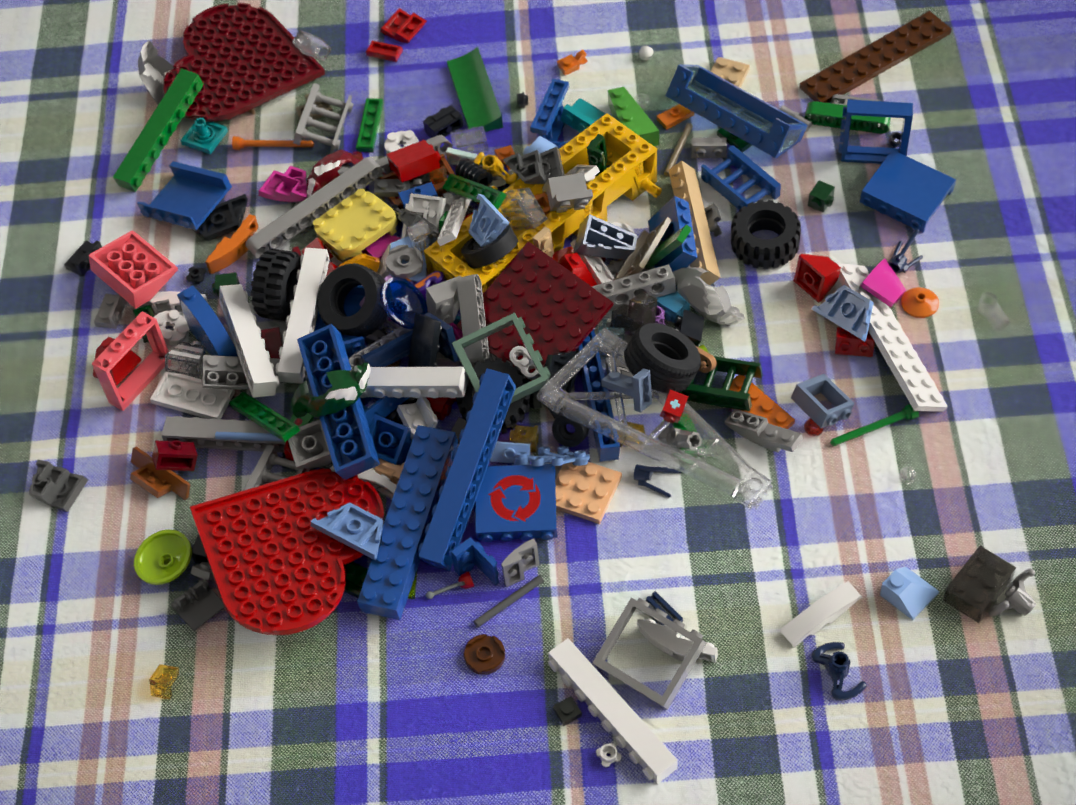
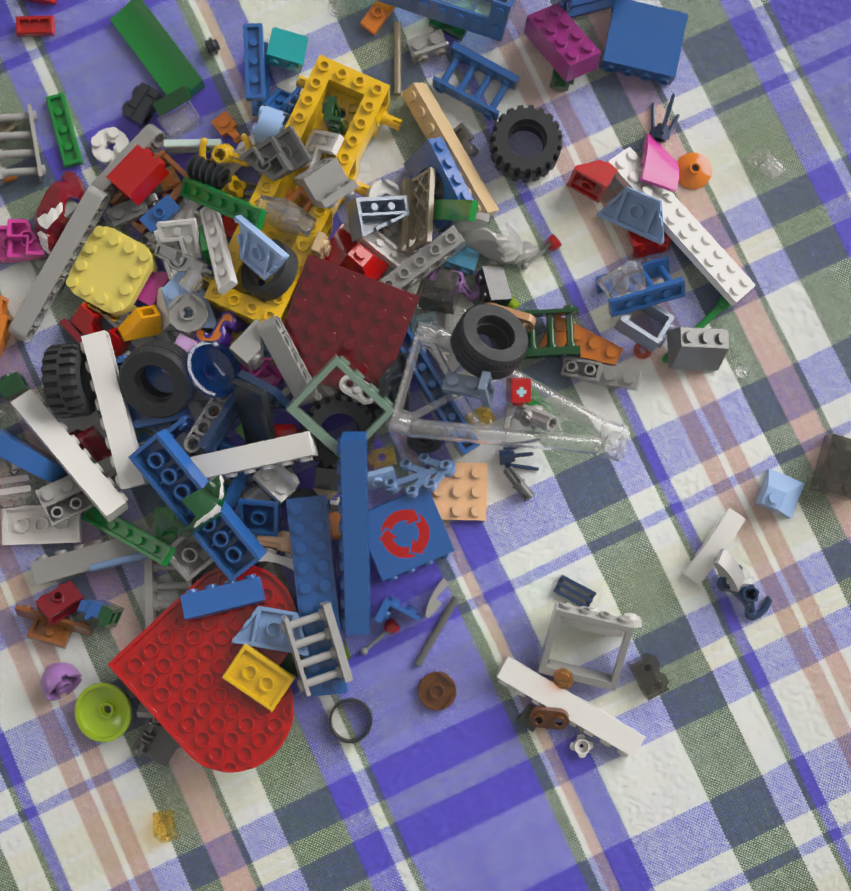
camera: 30 degrees left, 30 degrees up
(139, 520) = (58, 679): none -> medium lavender cylinder
(207, 475) = (101, 609): none -> hips
(320, 557) = (258, 677): none -> yellow tile
(321, 487) = (222, 598): none -> blue brick
(387, 631) = (336, 734): none -> black tyre
(405, 542) = (336, 652): none -> light grey fence
(469, 121) = (172, 100): none -> dark green slope
(583, 706) = (549, 717): none -> reddish brown plate
(614, 673) = (563, 678): none -> clear orange tile
(630, 114) = (336, 37): bright green wedge -> none
(645, 499) = (518, 483): none -> dark grey axle
(705, 710) = (648, 675): none -> clear smoke brick
(759, 318) = (552, 244): none -> hinge
(813, 349) = (623, 280): none -> clear slope
(825, 627) = (728, 568): none -> light grey slope
(828, 168) = (562, 42): none -> magenta brick
(828, 368) = (653, 294): none -> blue fence
(866, 434) = (697, 348): none -> dark grey slope

